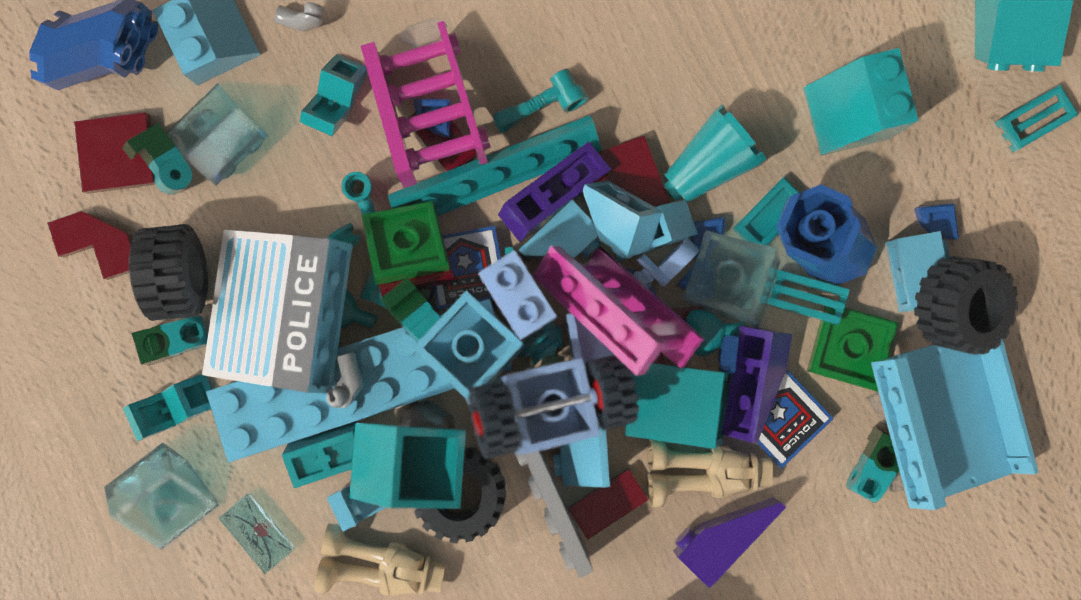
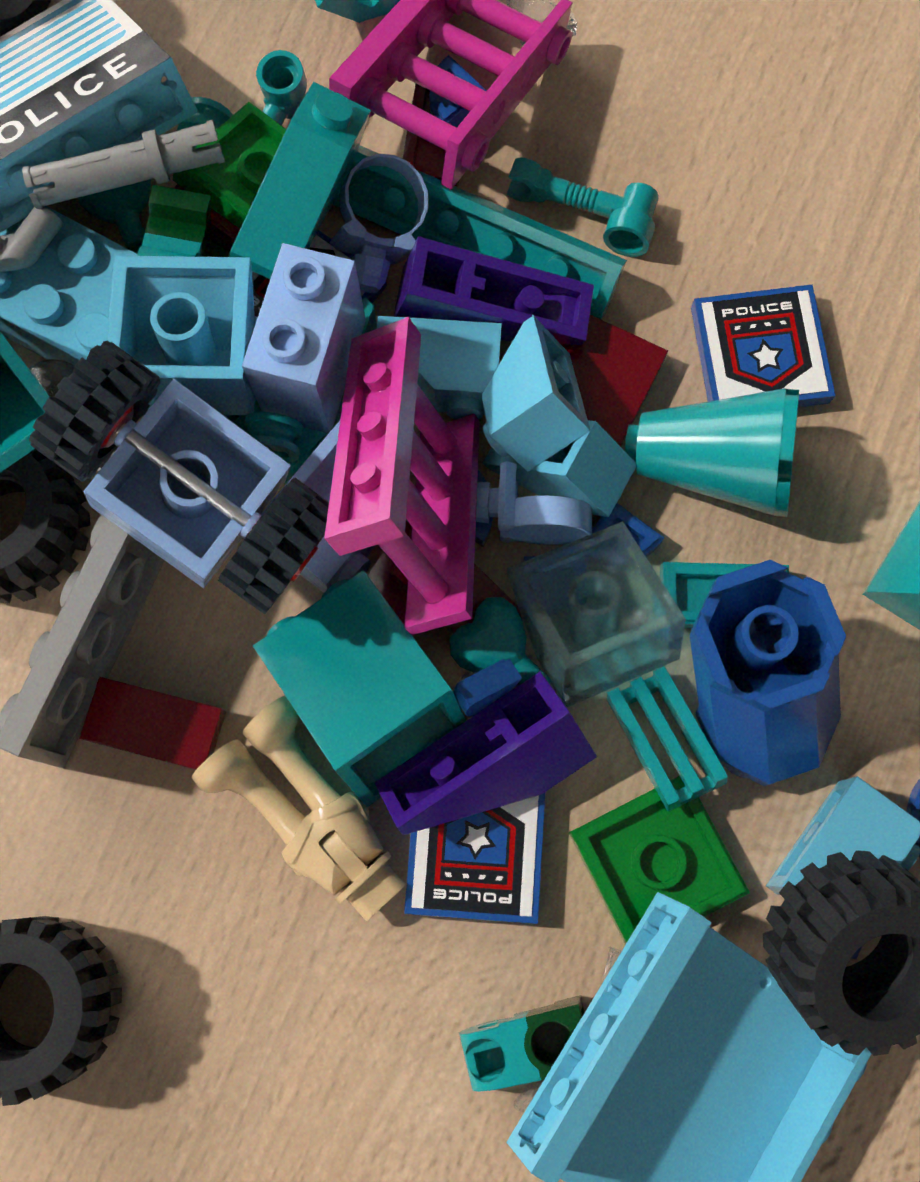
camera: 50 degrees right, 10 degrees down
(360, 303) = (124, 164): none -> light grey pin
(437, 232) = (302, 177): none -> teal slope
(488, 230) = (370, 252): none -> light blue piece
(584, 462) = (189, 628): medium azure slope -> none
(679, 93) = (763, 344): none -> tile
(720, 541) = (228, 918): dark purple slope -> none

